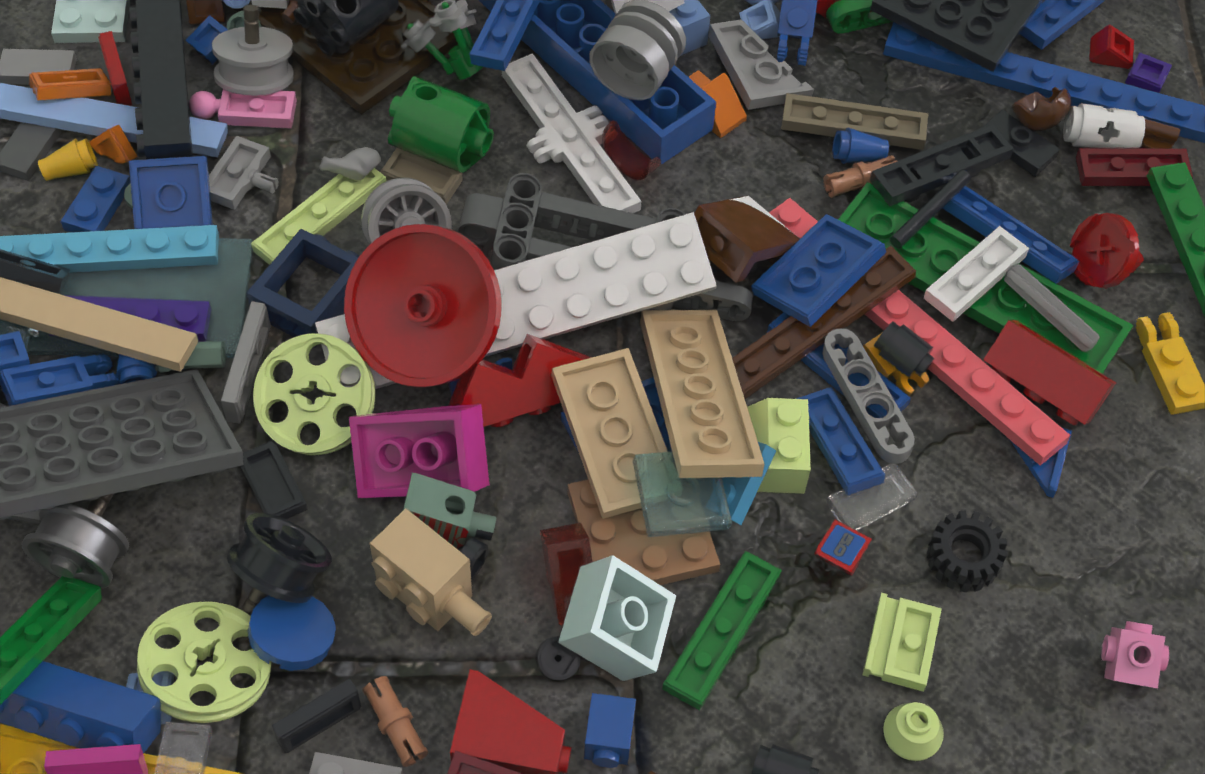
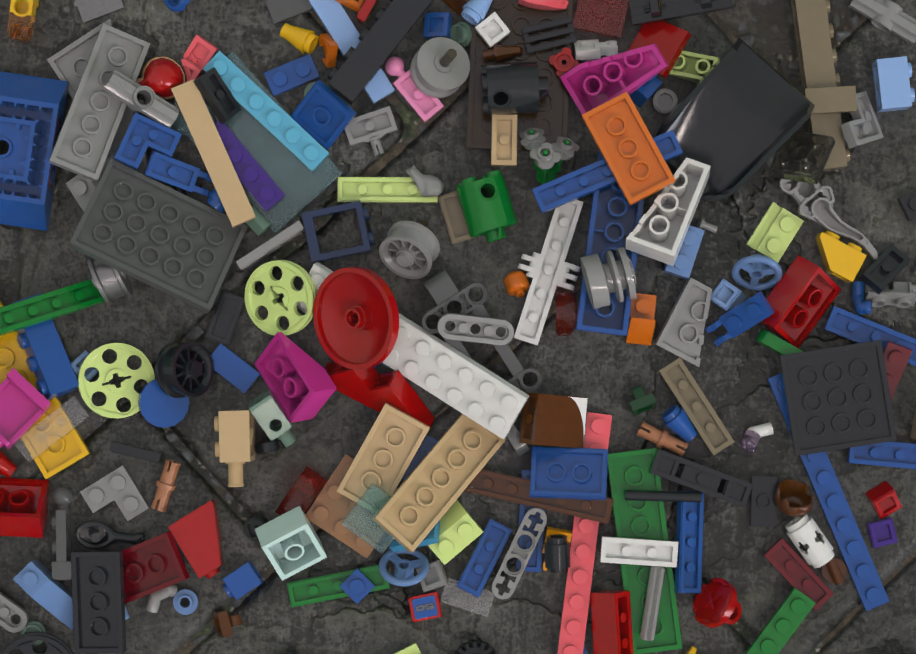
camera: 50 degrees right, 30 degrees up
(341, 521) = (234, 368): none -> blue tile
(390, 59) = (504, 140): none -> tan plate
(554, 178) = (516, 283): none -> orange piece
(567, 200) = (486, 333): none -> light grey plate
(745, 598) = (357, 586): none -> blue plate
(772, 531) = (404, 568): none -> medium blue piece
(800, 159) = (641, 401): none -> dark green tile
(810, 511) = (435, 577): none -> light grey tile
(936, 99) = (753, 436): none -> arm

